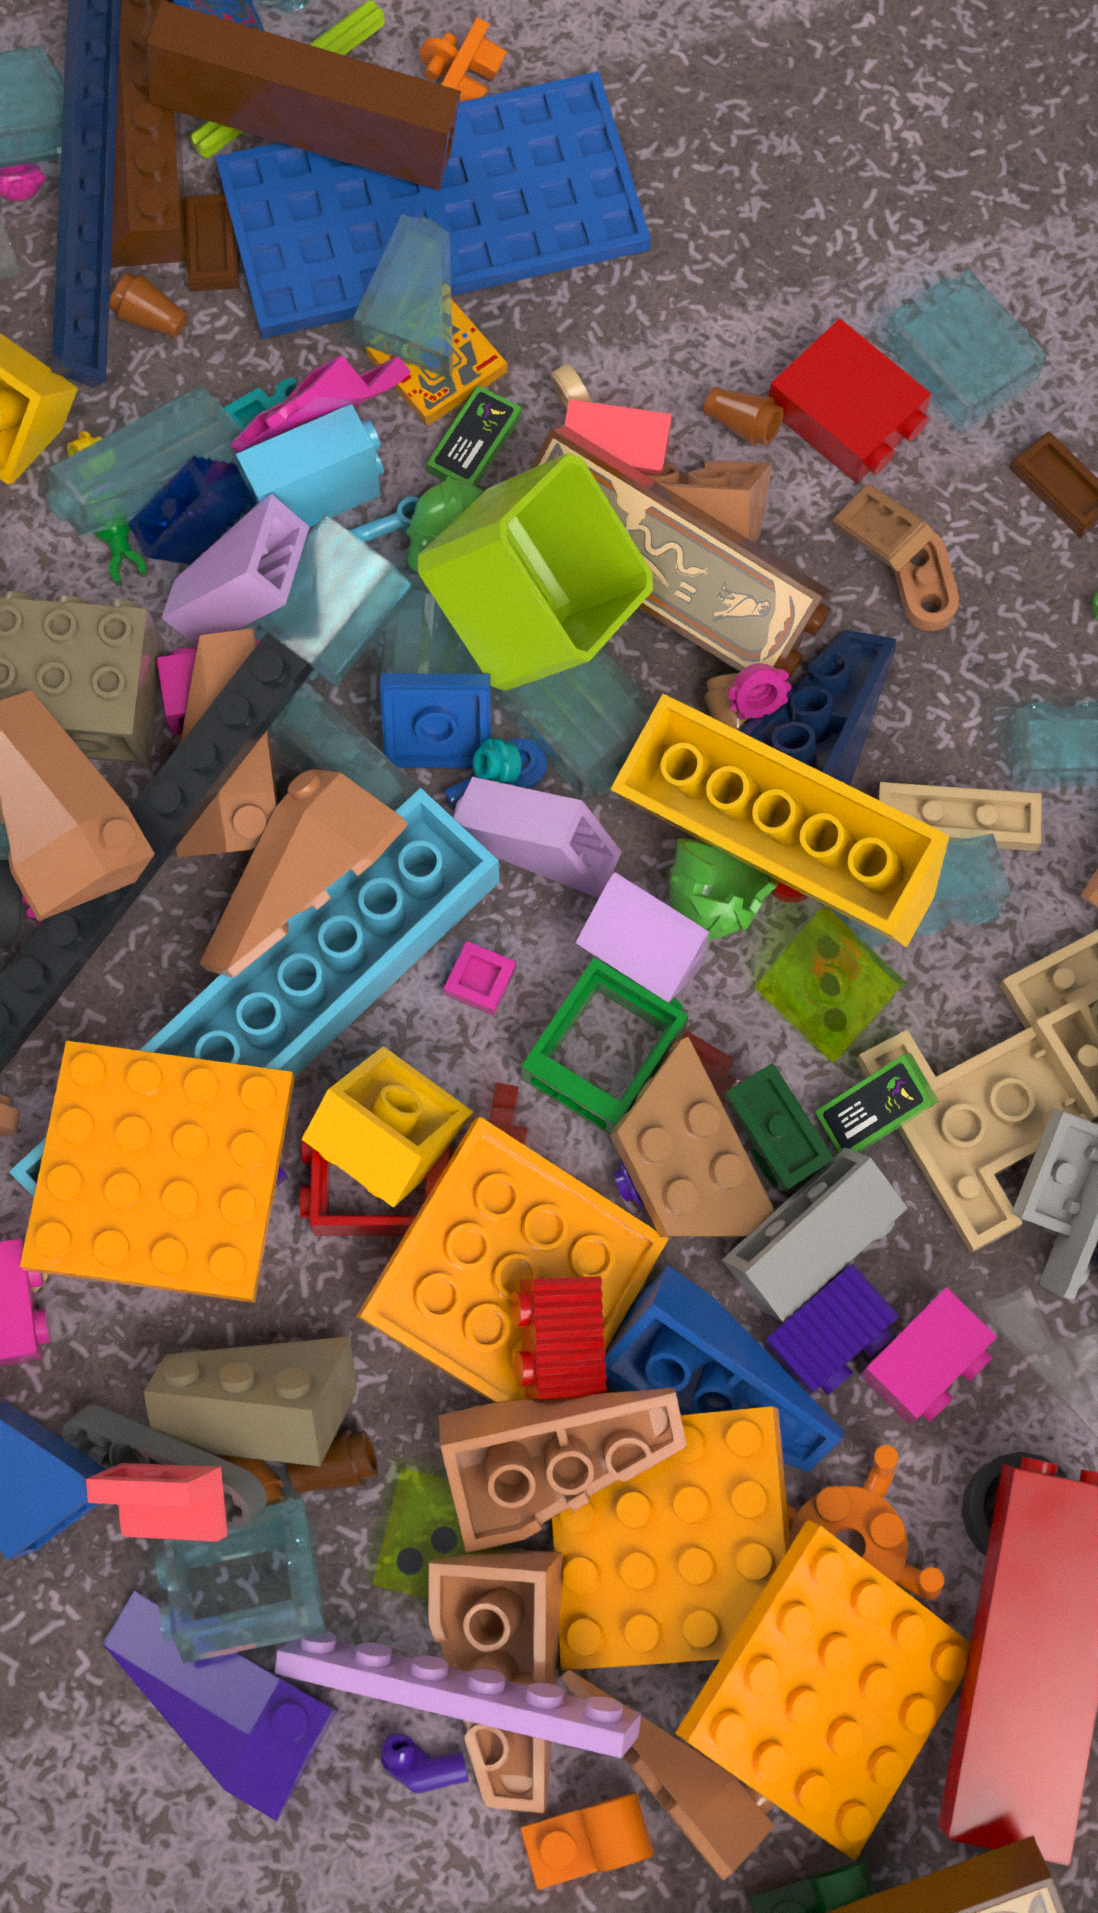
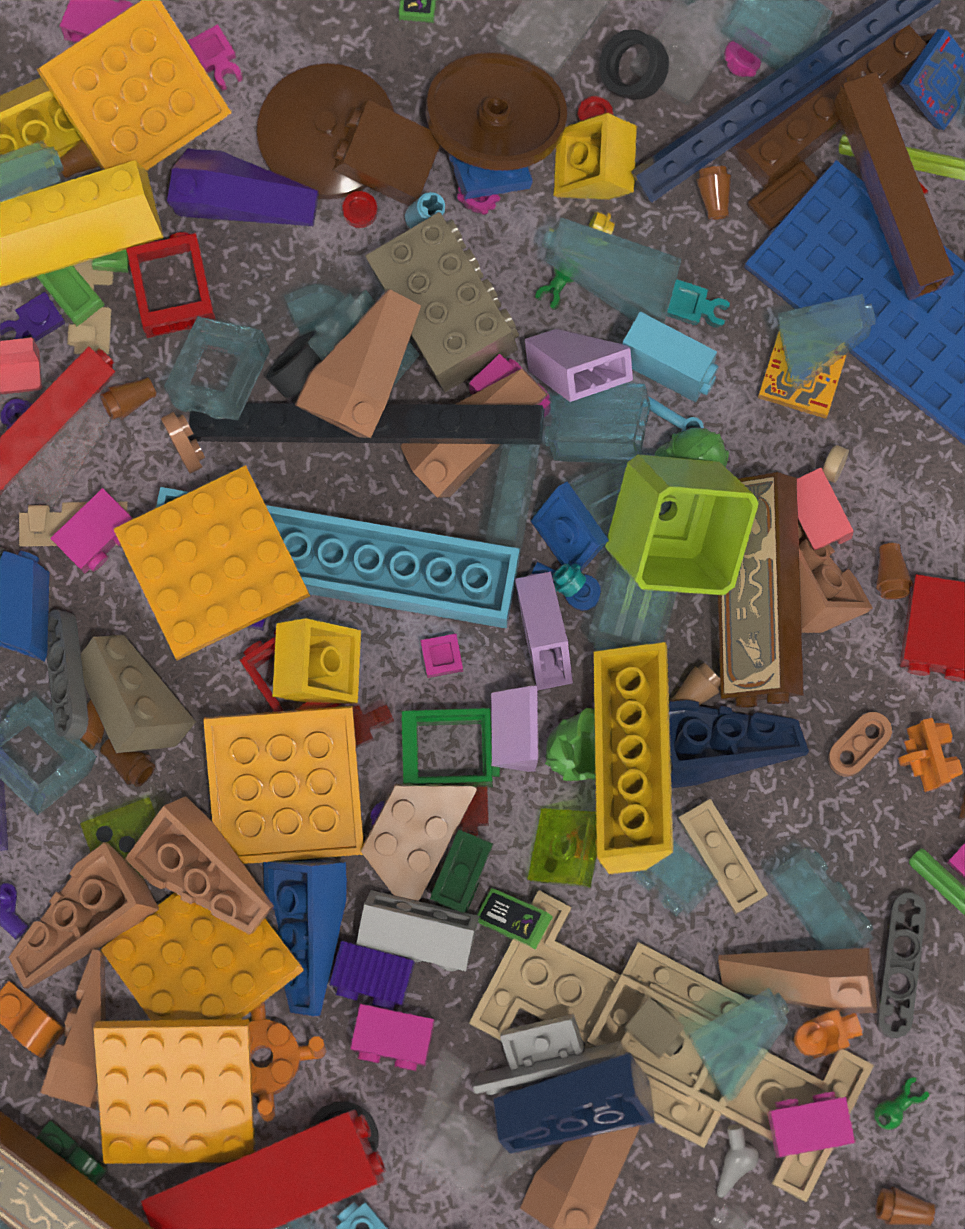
camera: 60 degrees right, 5 degrees up
(164, 1500) = (46, 685): coral panel -> none
(191, 510) = (597, 309): clear blue brick -> none
(307, 846) = (441, 513): nougat wedge -> none
(320, 393) = (713, 331): dark pink slope -> none
(473, 1696) = (49, 903): lavender plate -> none
(475, 437) = (766, 430): tile -> none
(560, 1337) = (266, 830): red brick -> none
(758, 691) = (711, 694): dark pink animal -> none
(883, 527) = (870, 698): medium nougat plate -> none
(990, 512) = (926, 754): none -> orange hips

